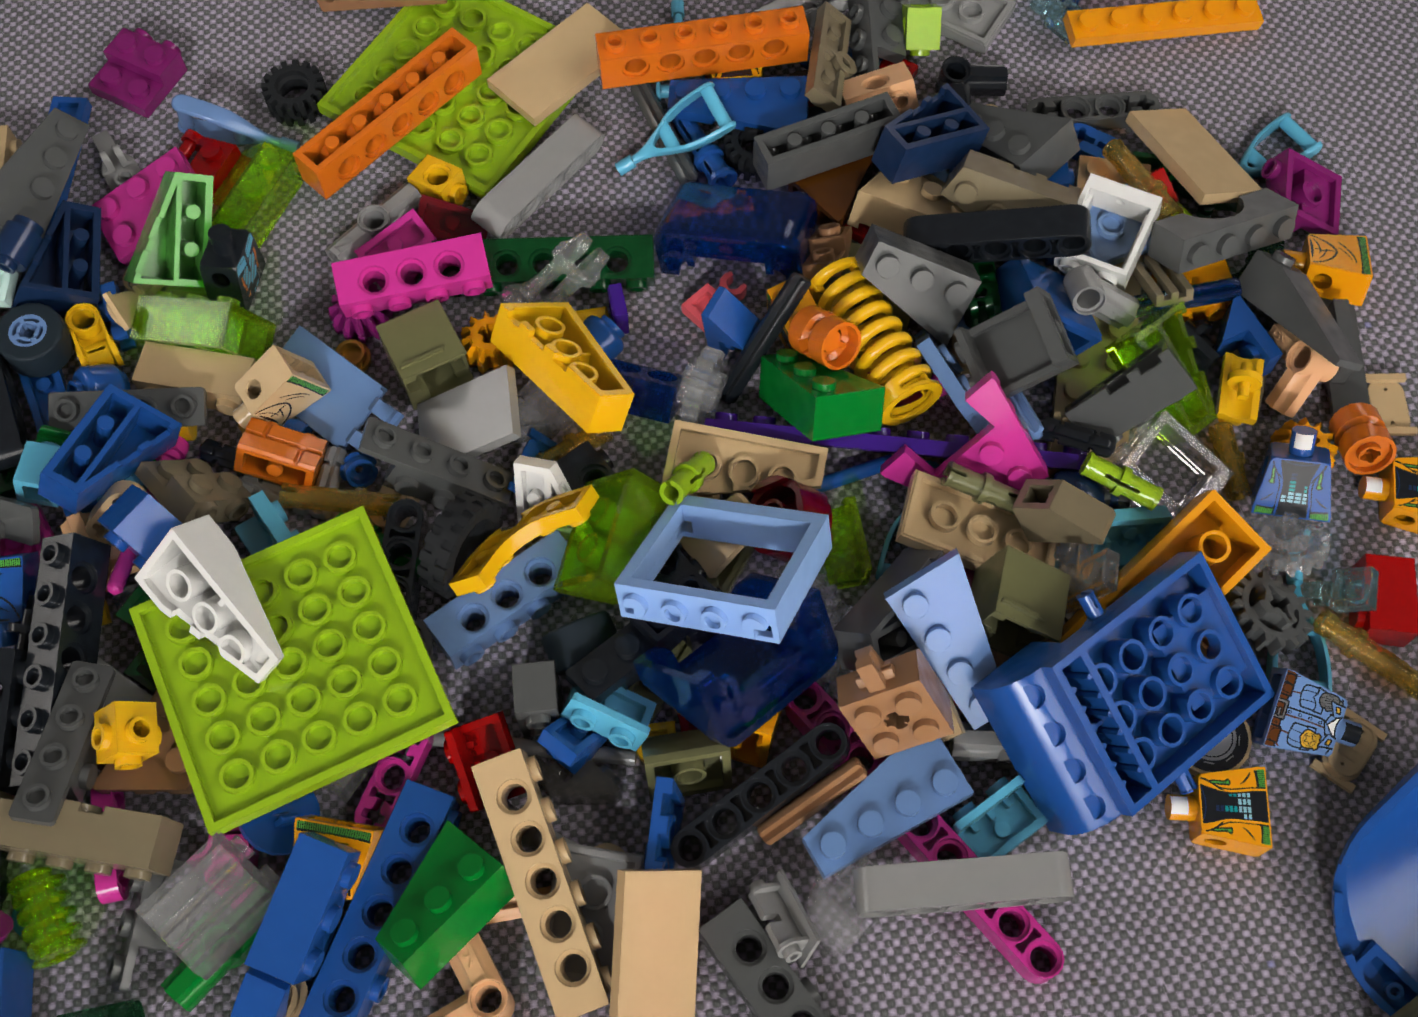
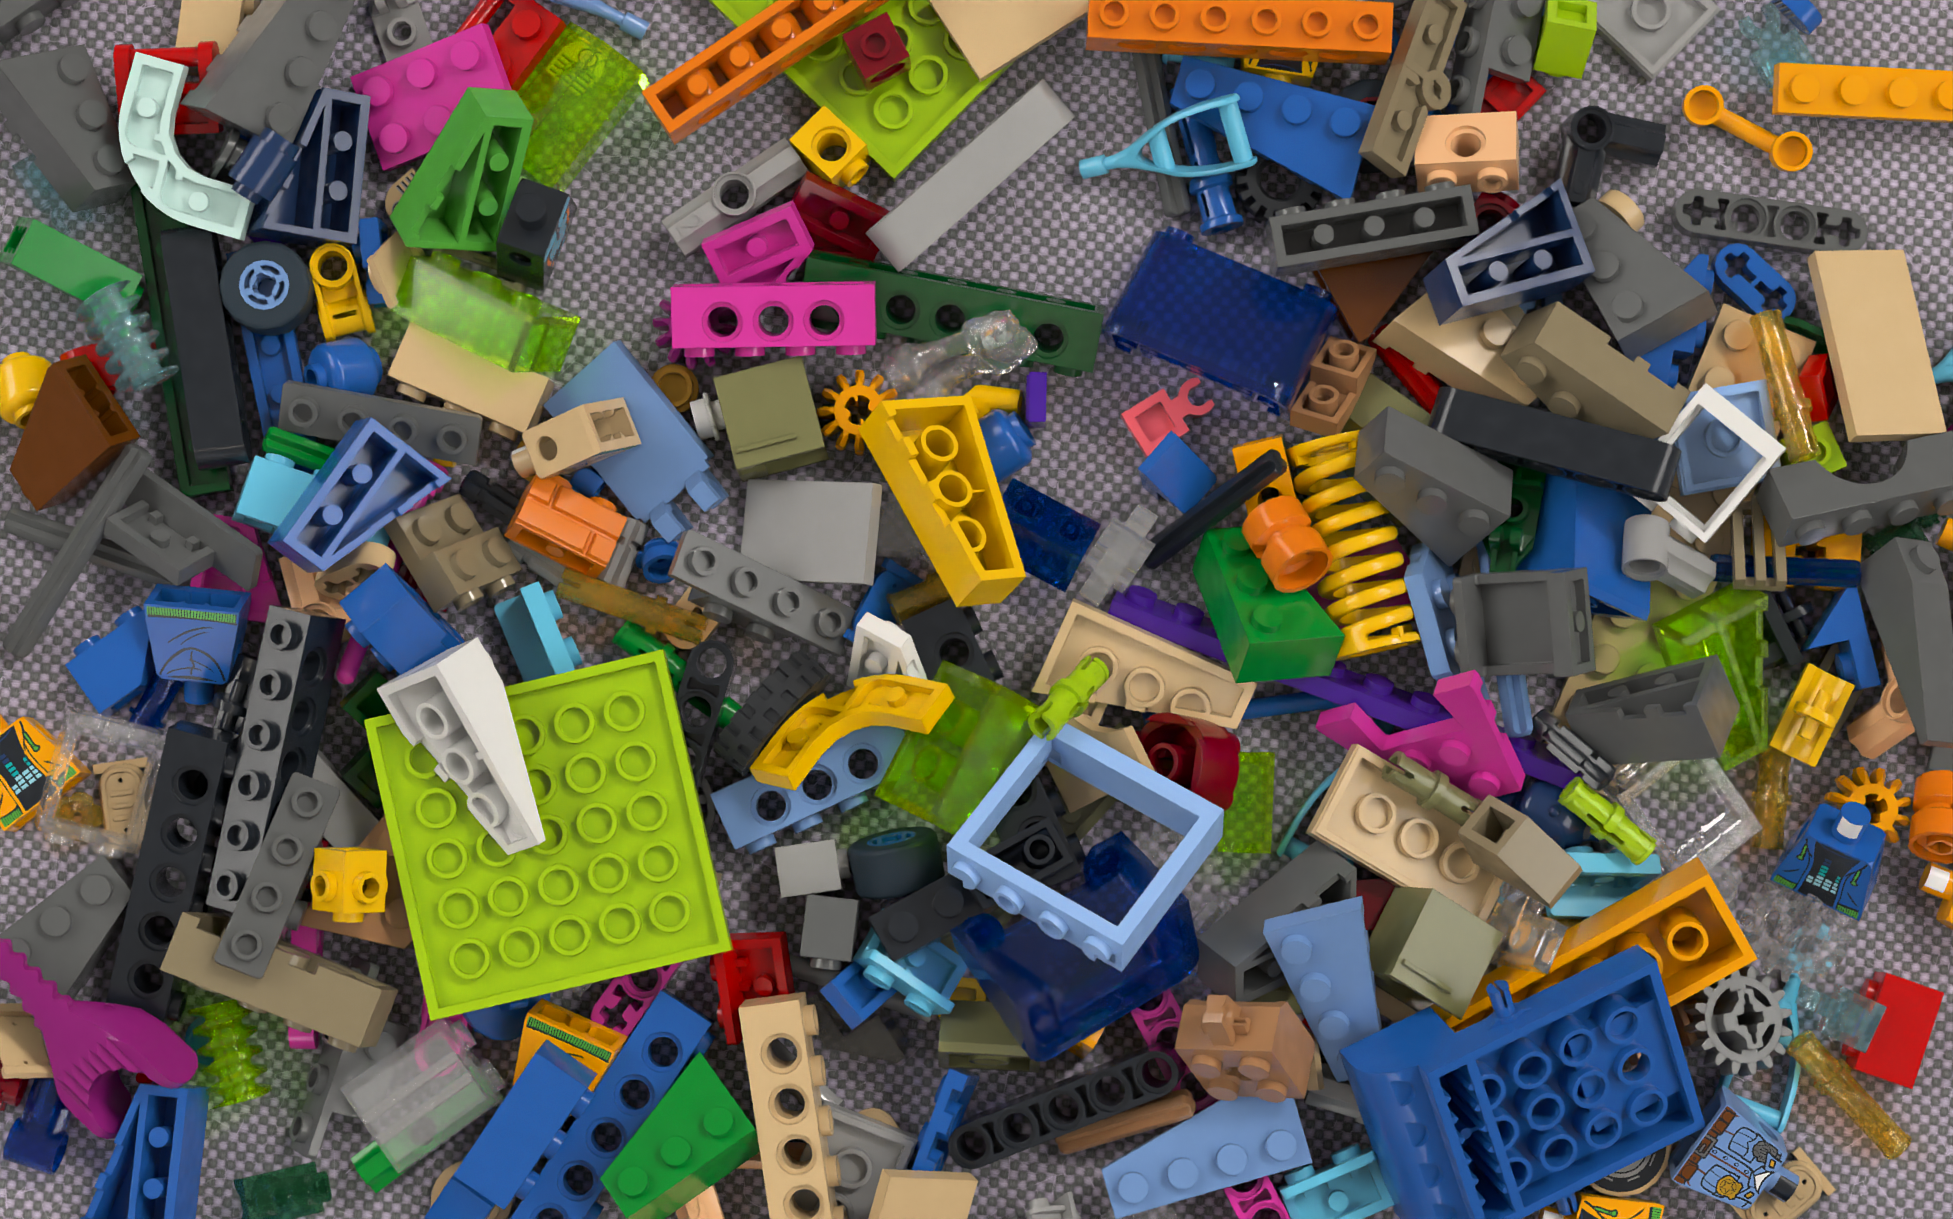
camera: 15 degrees right, 20 degrees up
(380, 368) = (707, 417): none -> white plate
(458, 113) = (876, 51): none -> dark red brick
(505, 653) = (811, 868): none -> light grey brick
(1026, 57) = (1786, 152): none -> light orange bar

